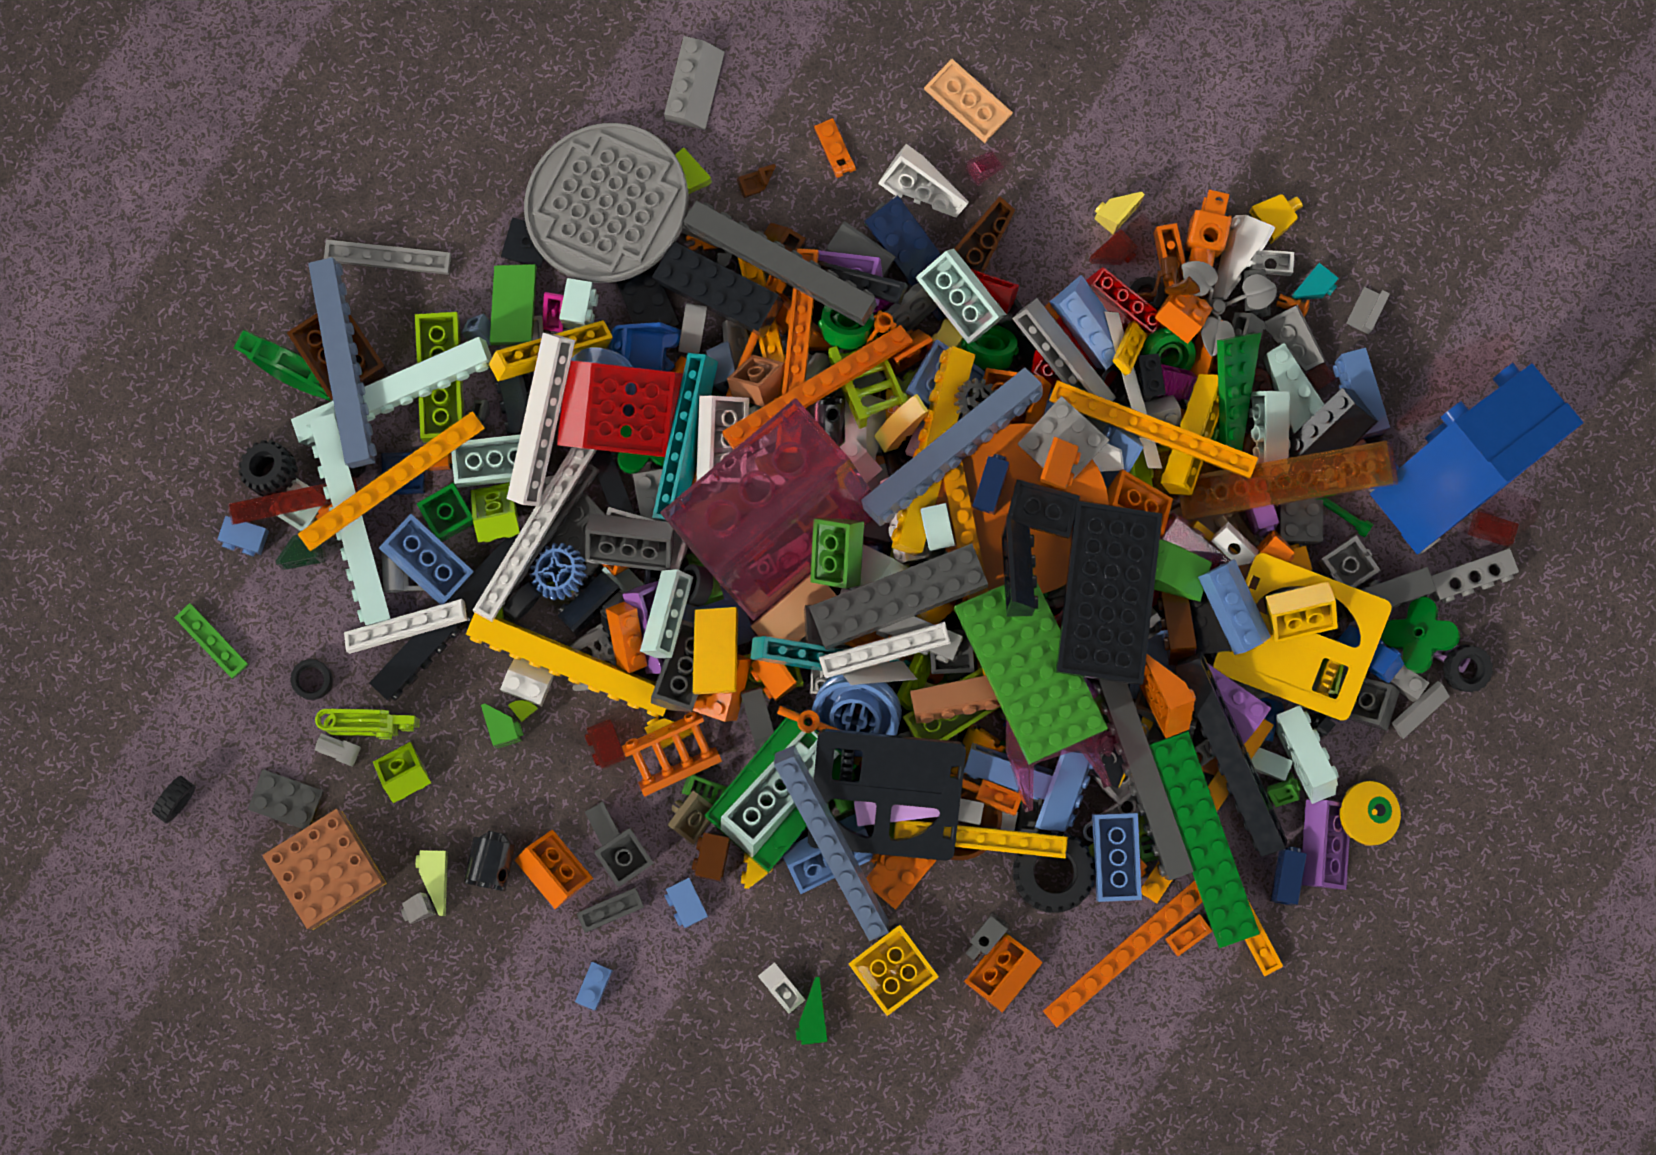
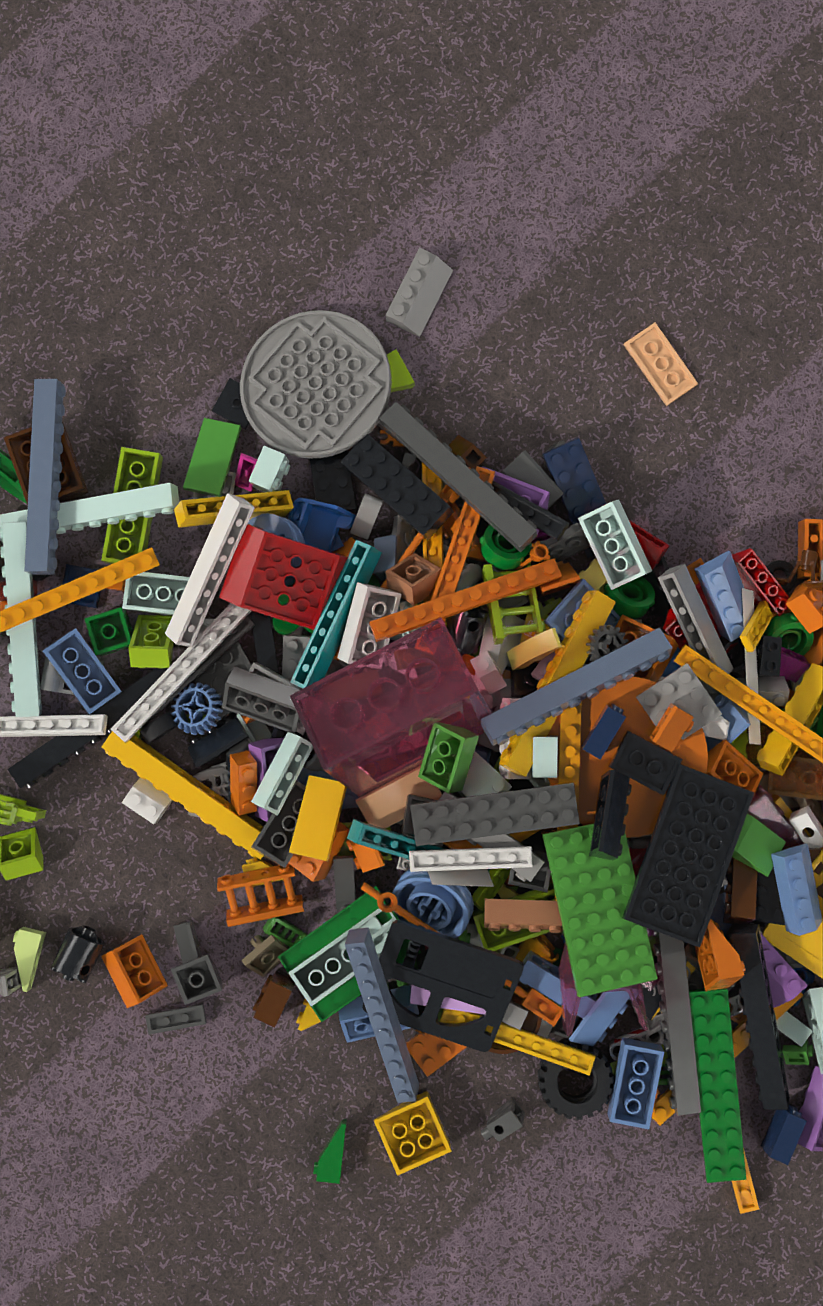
camera: 15 degrees right, 5 degrees up
(388, 257) = (111, 388): light grey plate -> none
(477, 327) = (175, 473): sand blue panel -> none
(481, 409) = (162, 545): dark grey slope -> none
(501, 727) = (115, 835): bright green slope -> none
(514, 402) = (191, 547): black slope -> none
(522, 709) = (138, 822): lime tile -> none
(593, 986) = (145, 1084): medium blue brick -> none
(606, 744) = (204, 870): clear red brick -> none
(686, 903) = (244, 1029): medium blue brick -> none
(755, 182) = (454, 394): reddish brown slope -> none
(781, 988) = (310, 1123): white slope -> none
(834, 147) = (531, 379): orange plate -> none
(916, 177) = (599, 425): white wedge -> none
(983, 167) = (660, 428): clear pink slope -> none
(983, 238) = (647, 491): reddish brown wedge -> none
(1003, 972) = (509, 1158): orange slope -> none
(1115, 250) = (761, 531): clear red slope -> none
(1117, 210) = (771, 495): light yellow slope -> none
(1123, 955) = (620, 1163): orange plate -> none
(1188, 935) = (681, 1160): orange plate -> none

